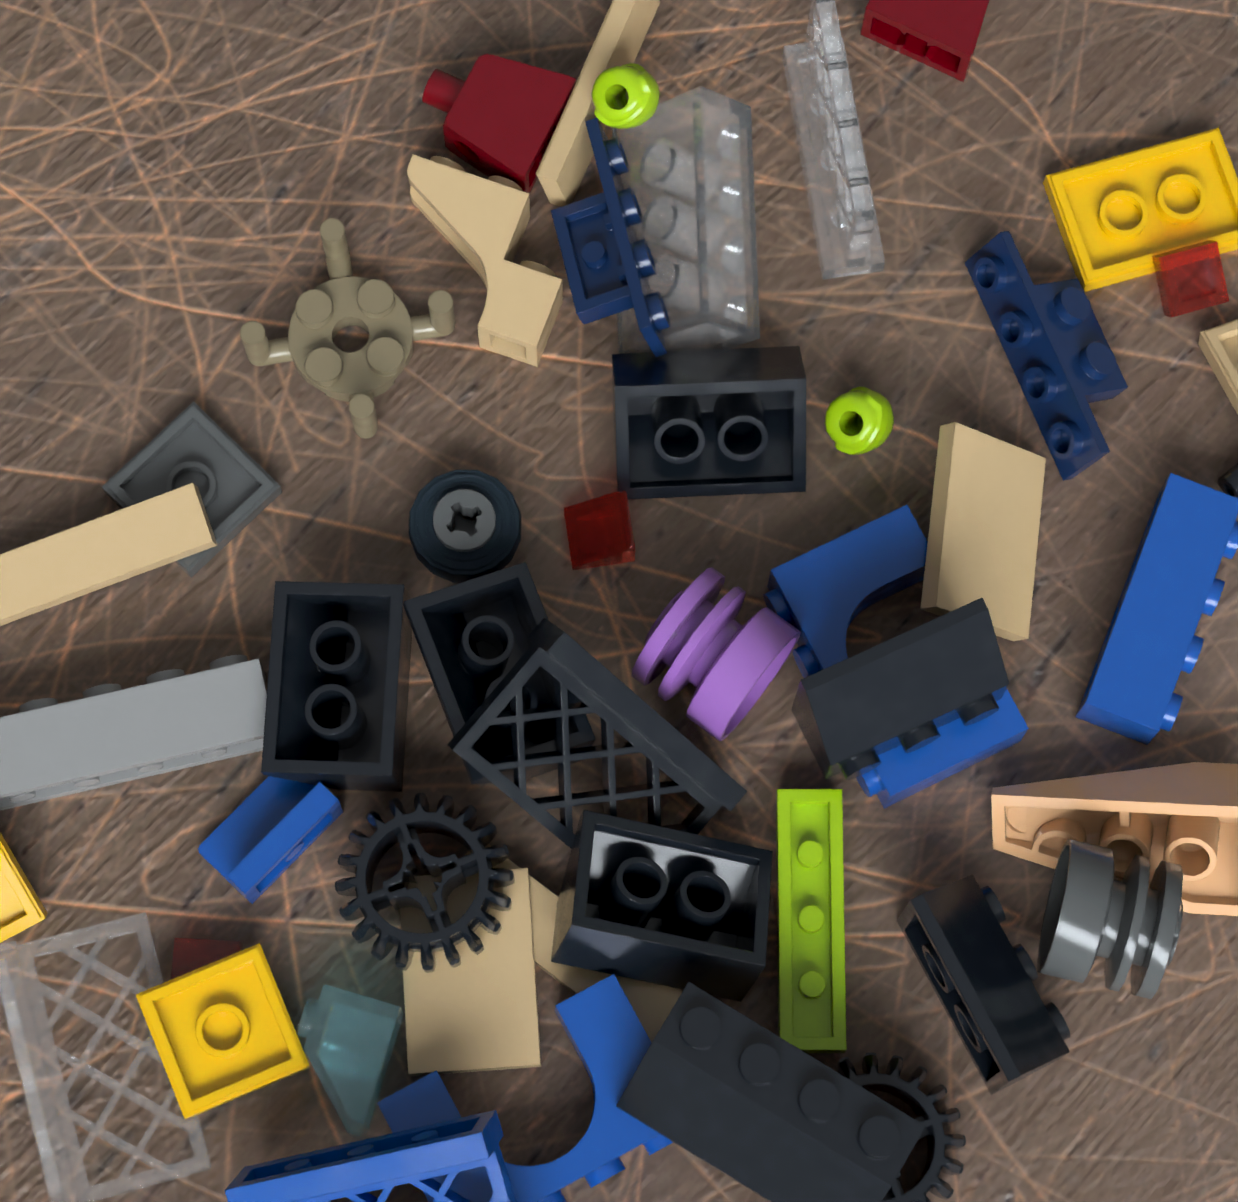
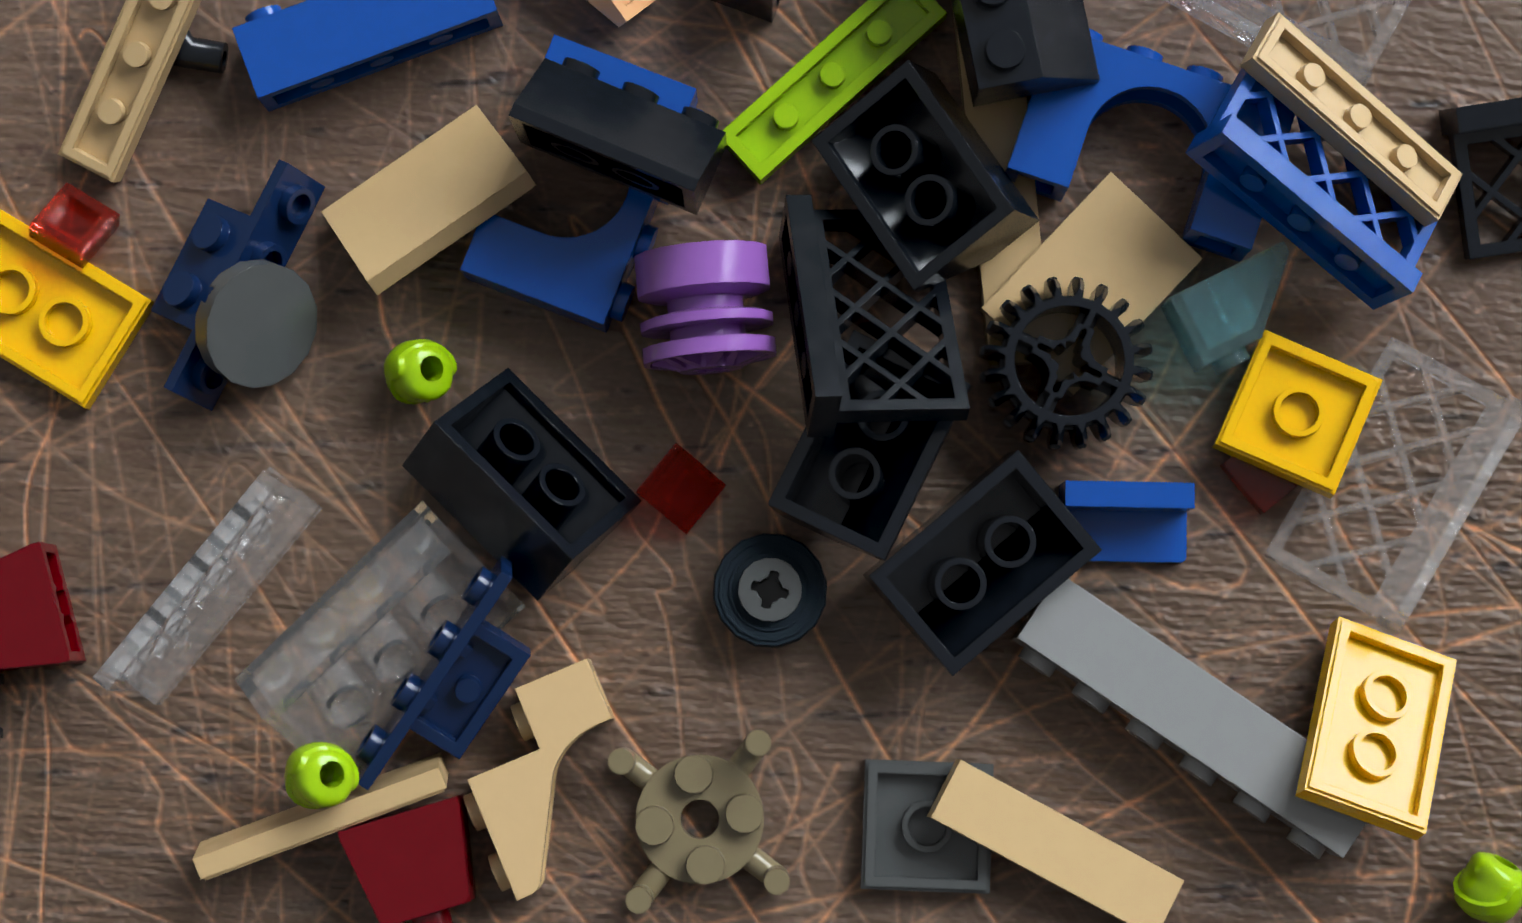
camera: 130 degrees left, 10 degrees up
(998, 333) = (256, 323): none -> dark grey tile

